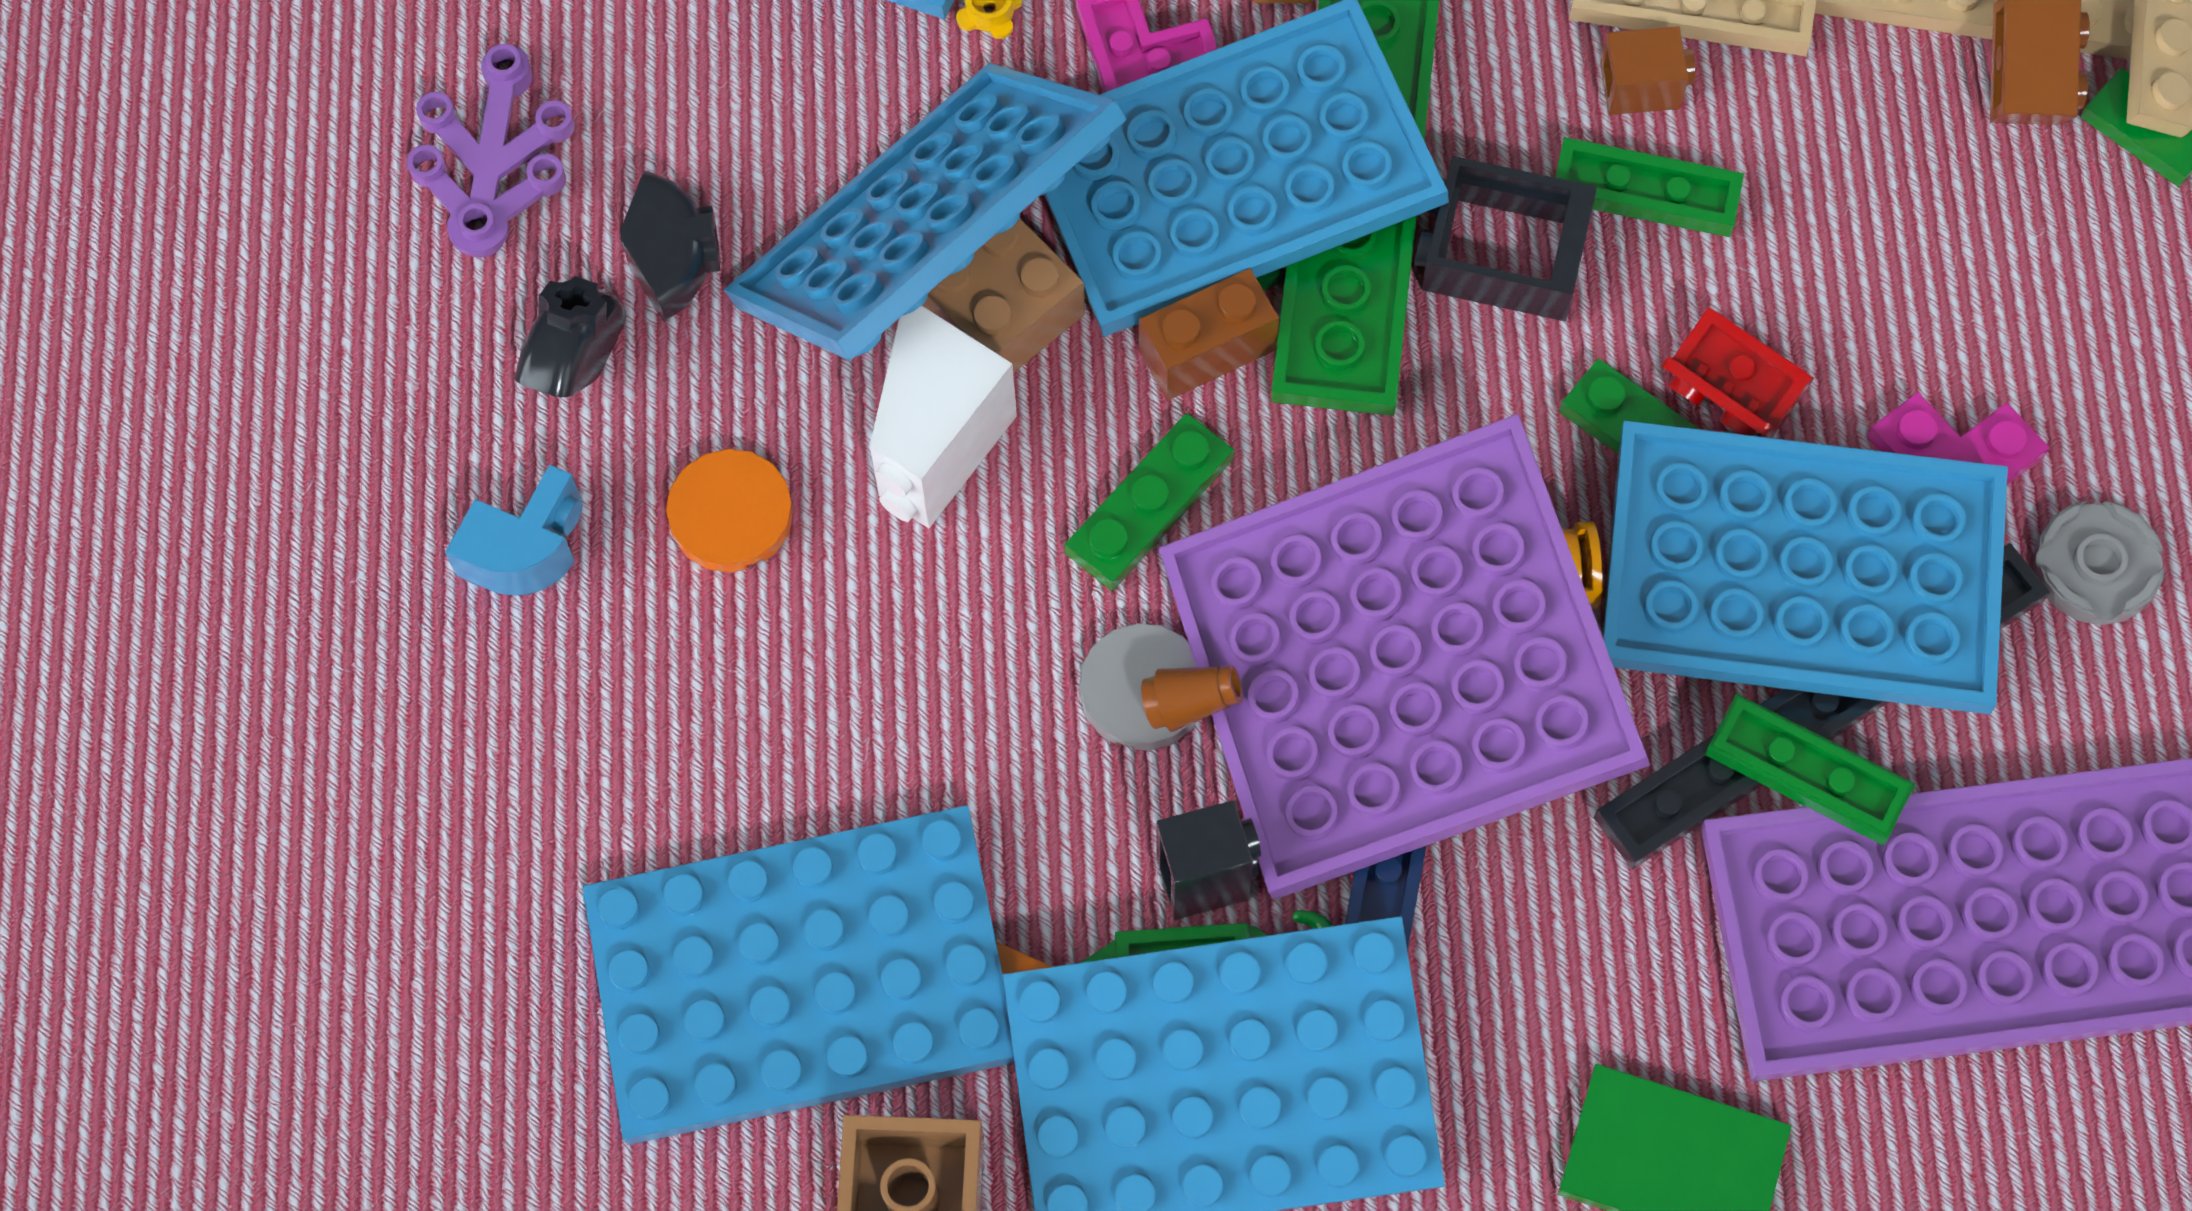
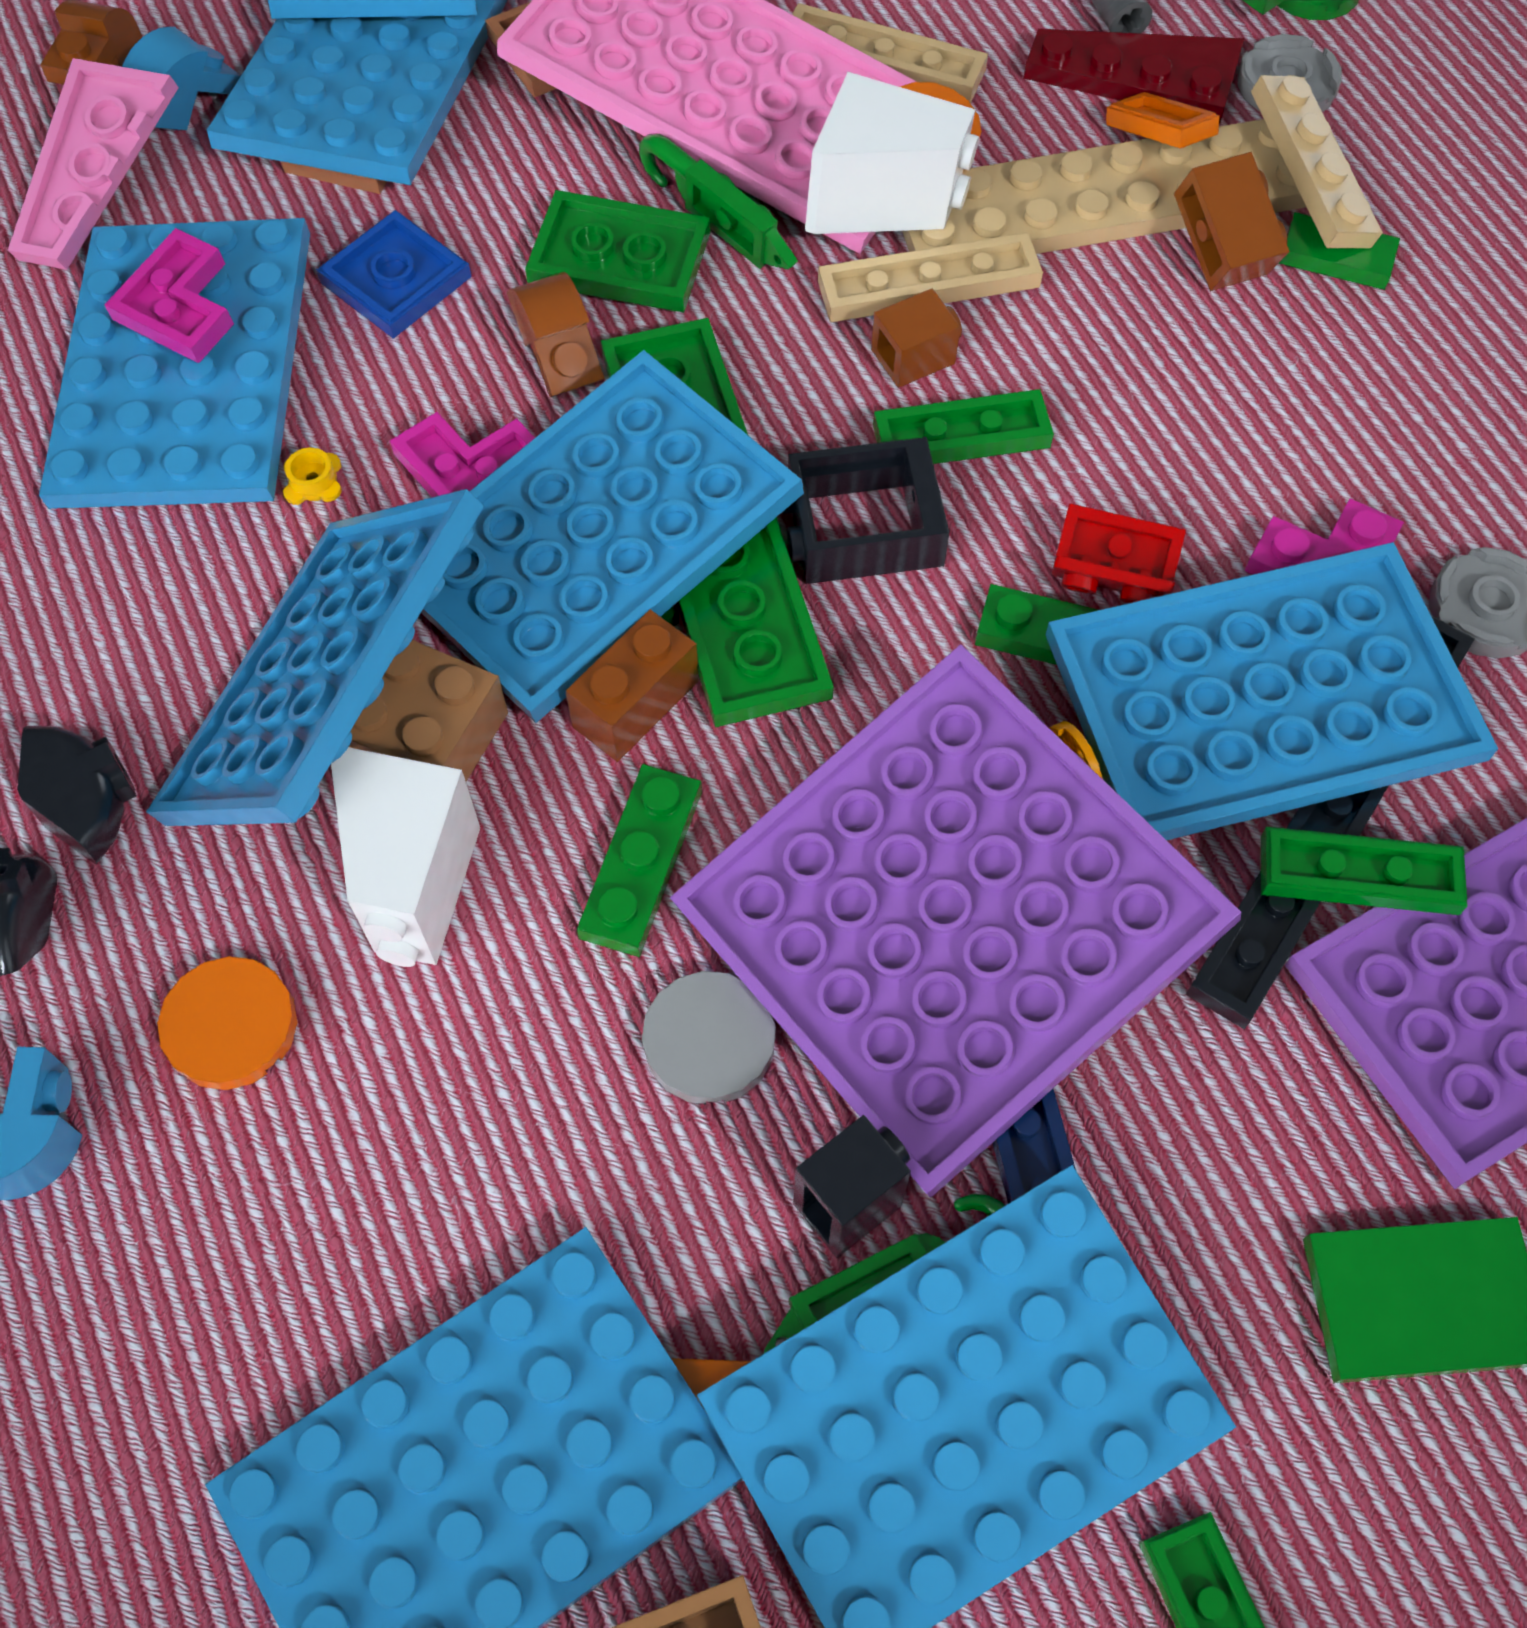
camera: 25 degrees left, 5 degrees down
(1189, 694) = (763, 1026): dark orange cone -> none

